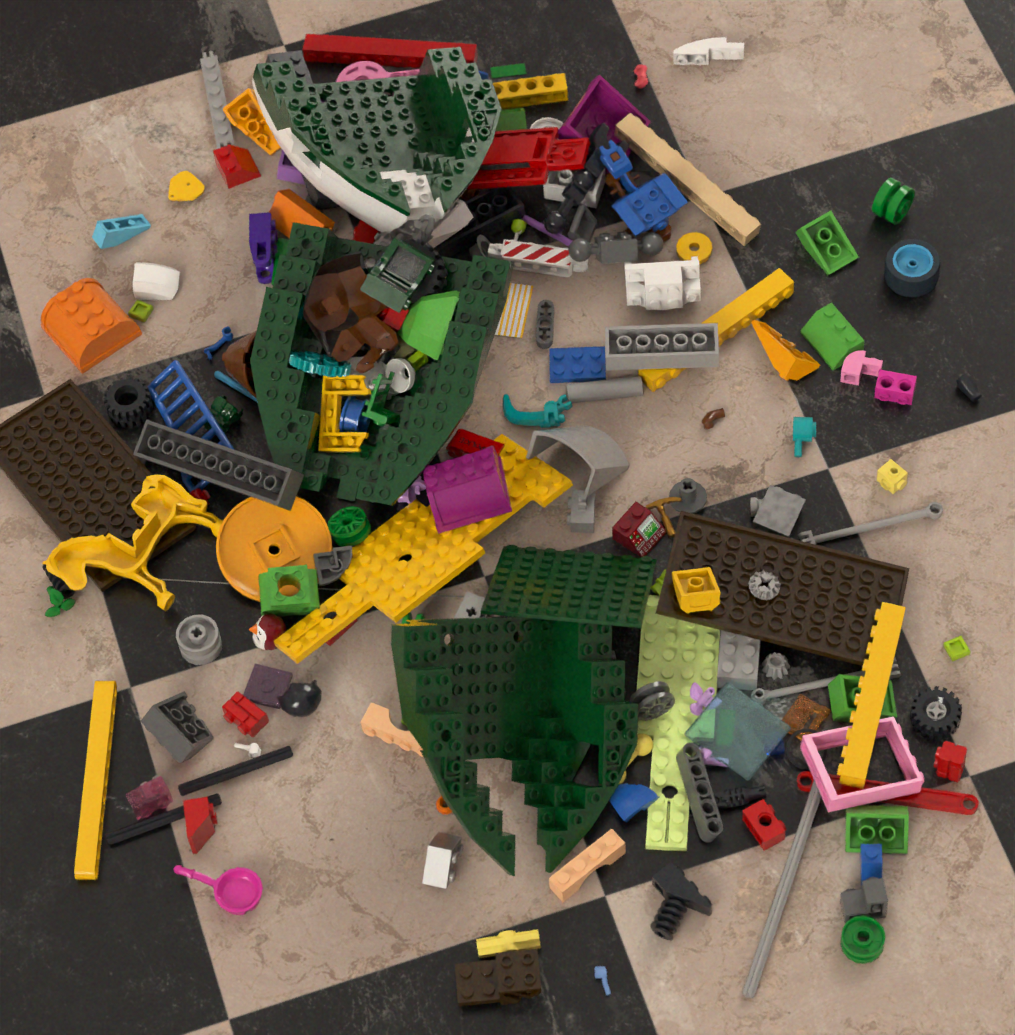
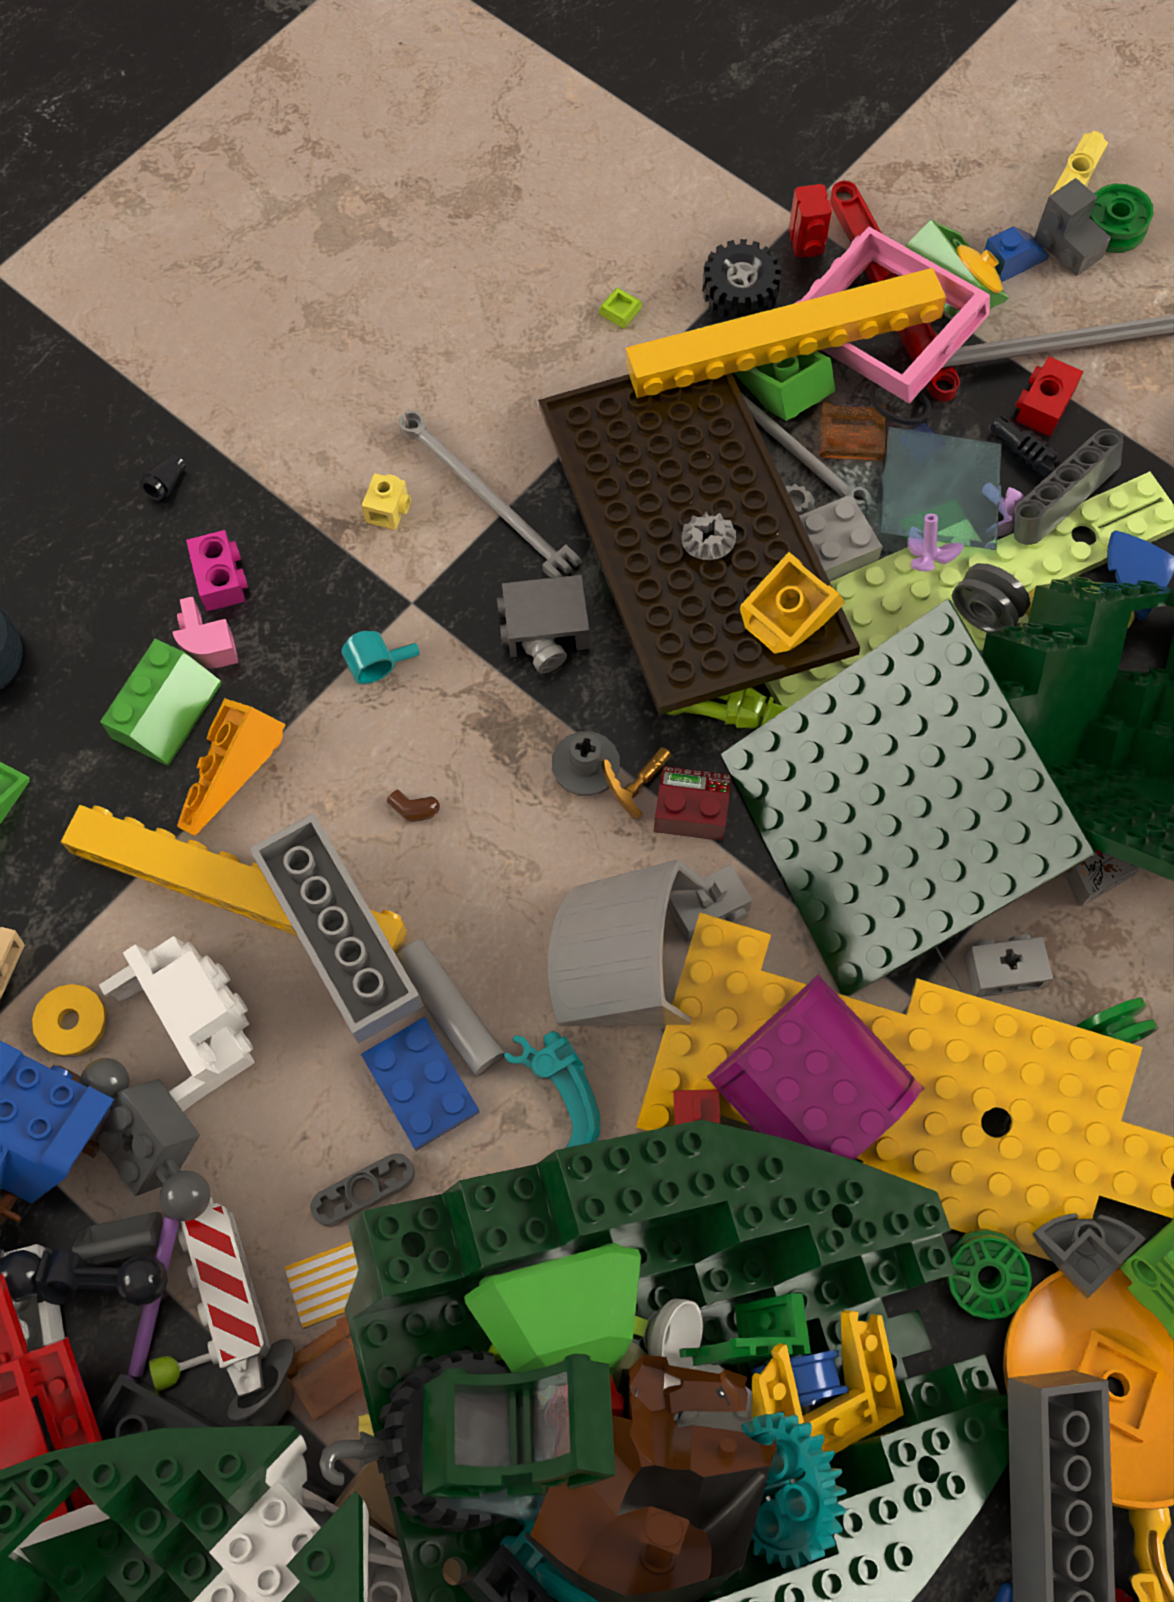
camera: 125 degrees left, 10 degrees up
(863, 823) = (981, 266): none -> yellow dish
(915, 947) = (1083, 160): none -> light yellow piece

